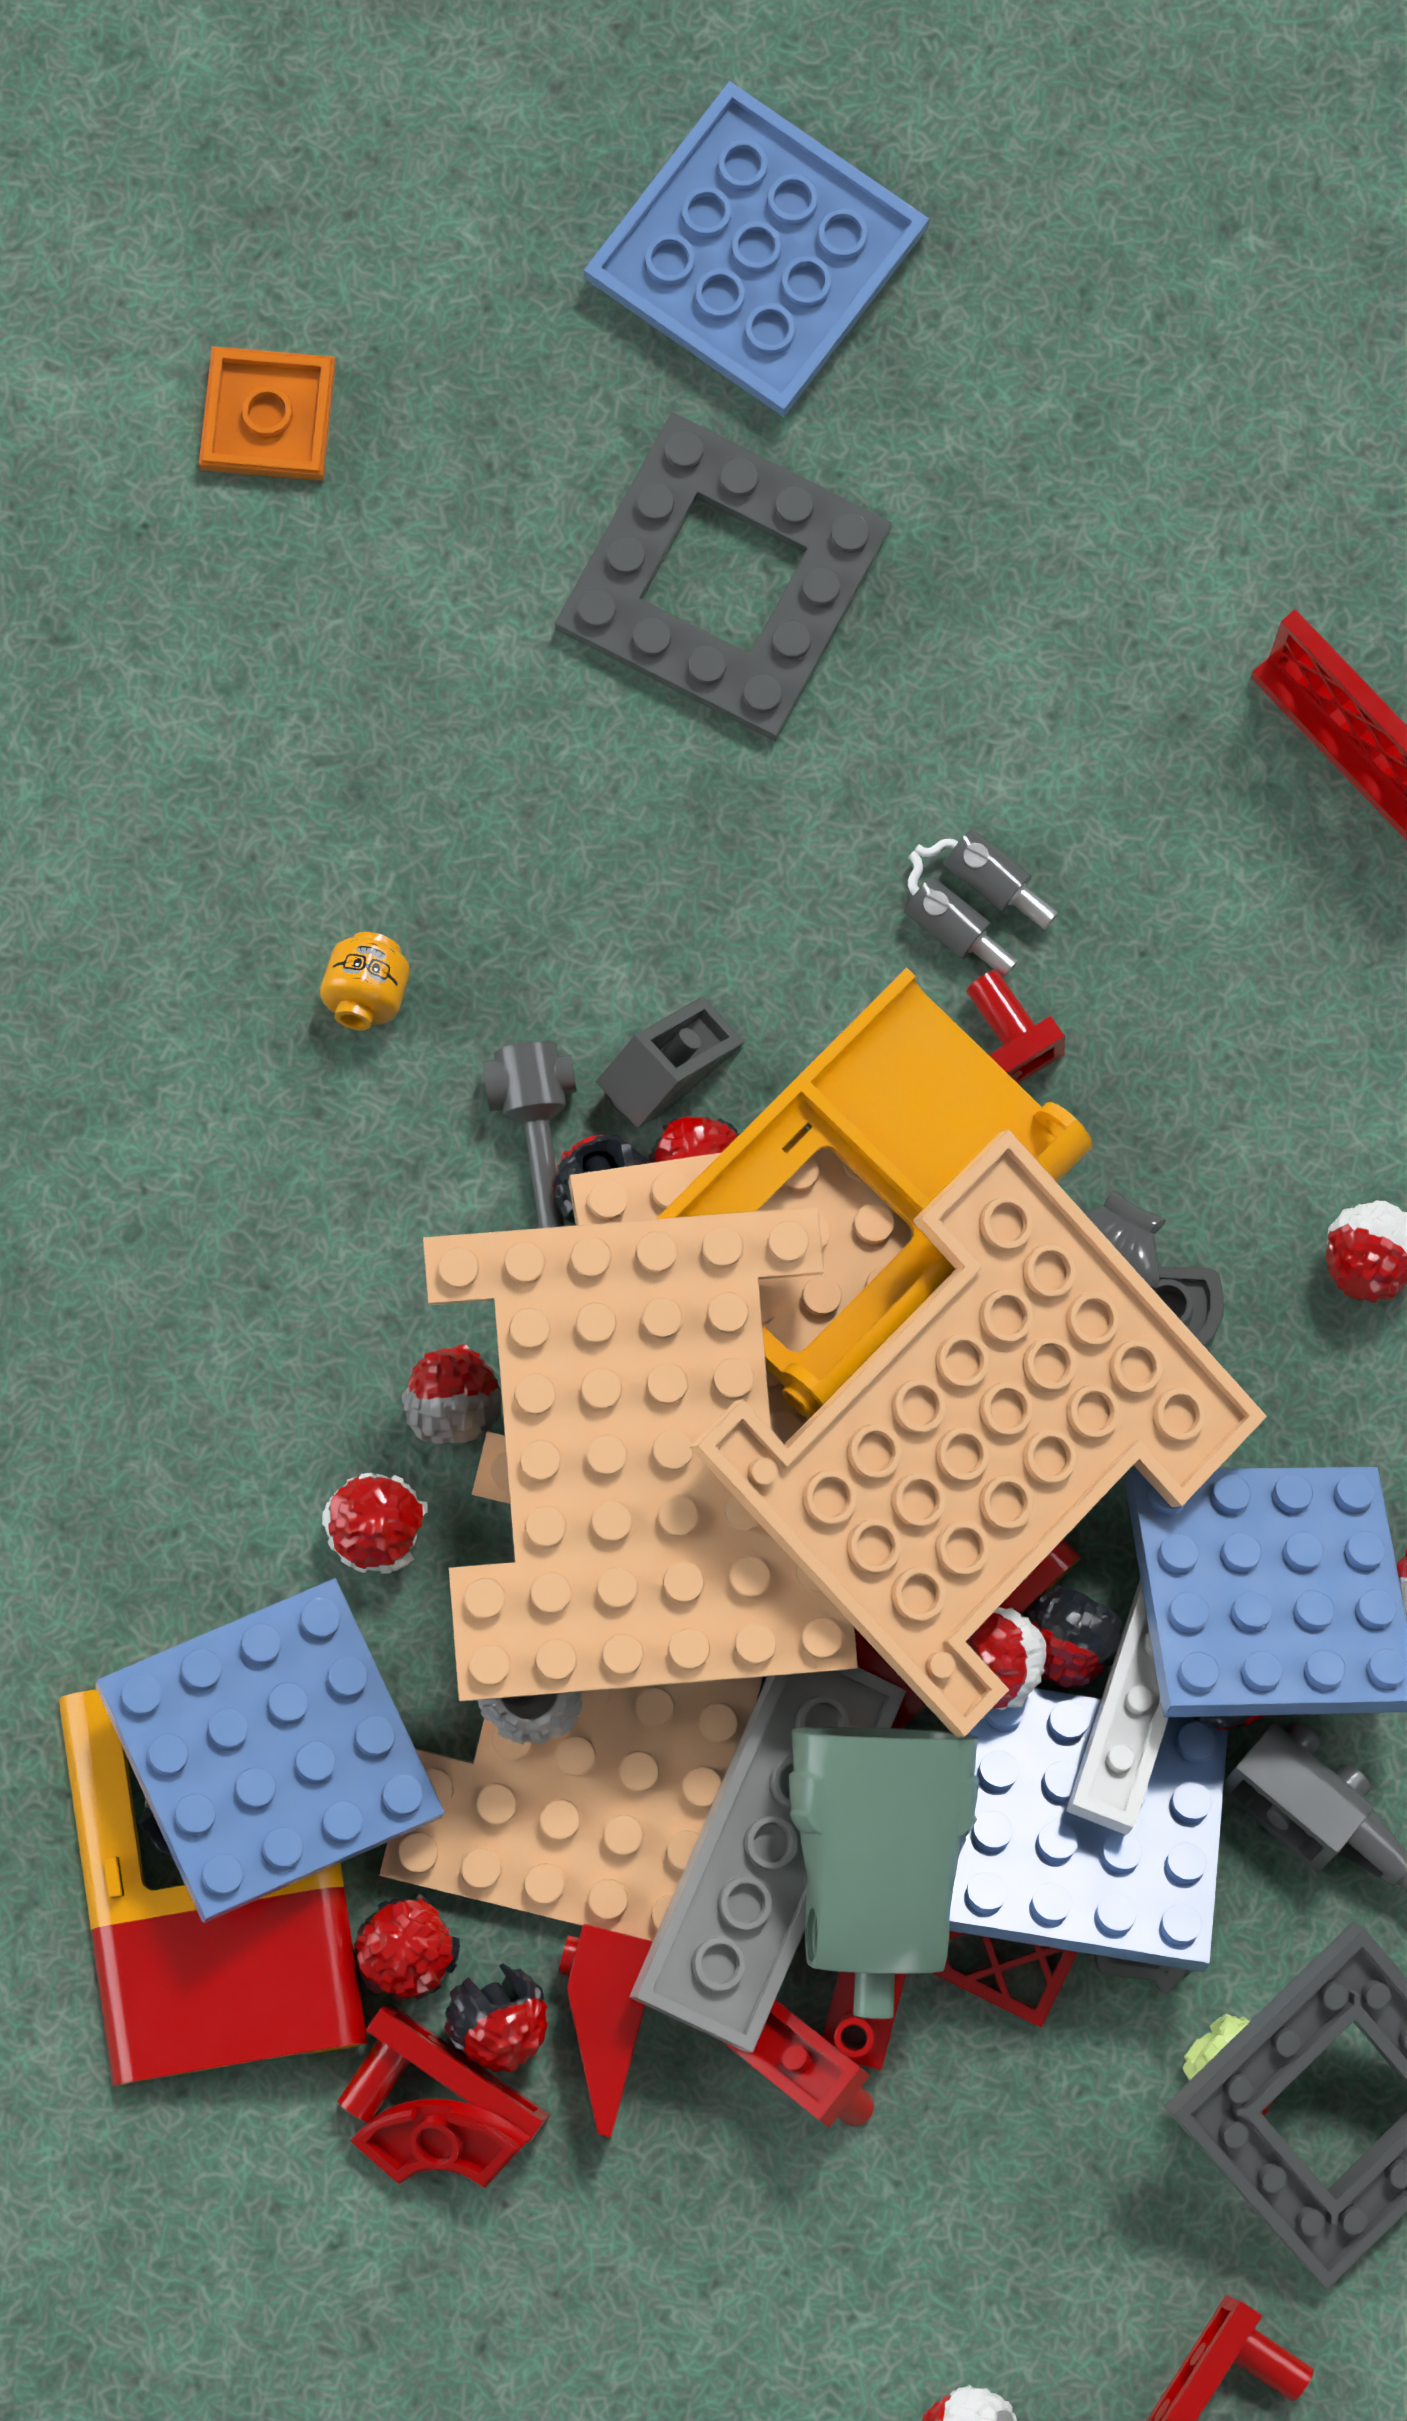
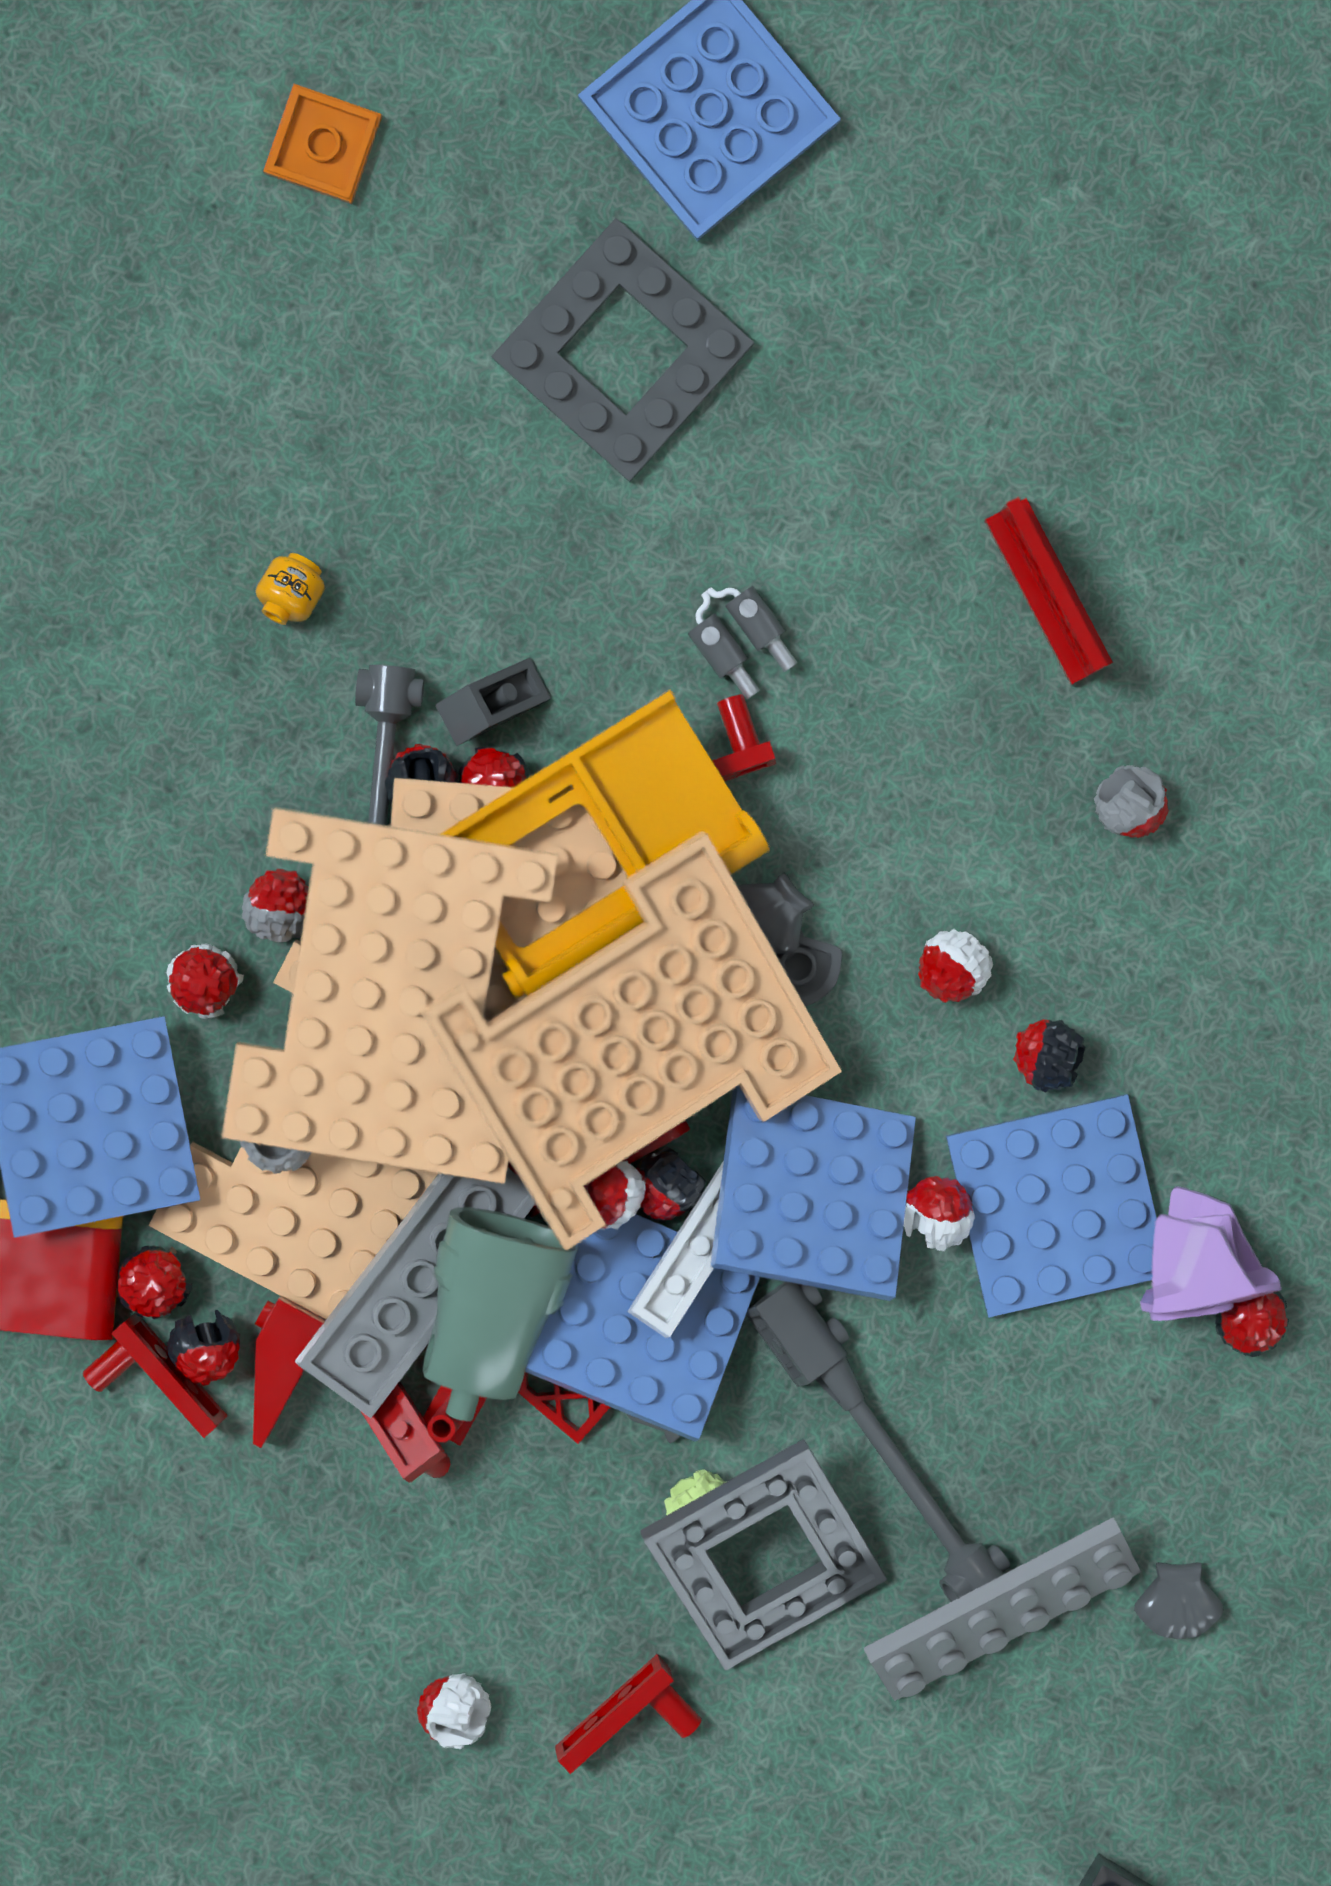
camera: 15 degrees right, 10 degrees up
(440, 2137) = (145, 1416): red tile -> none

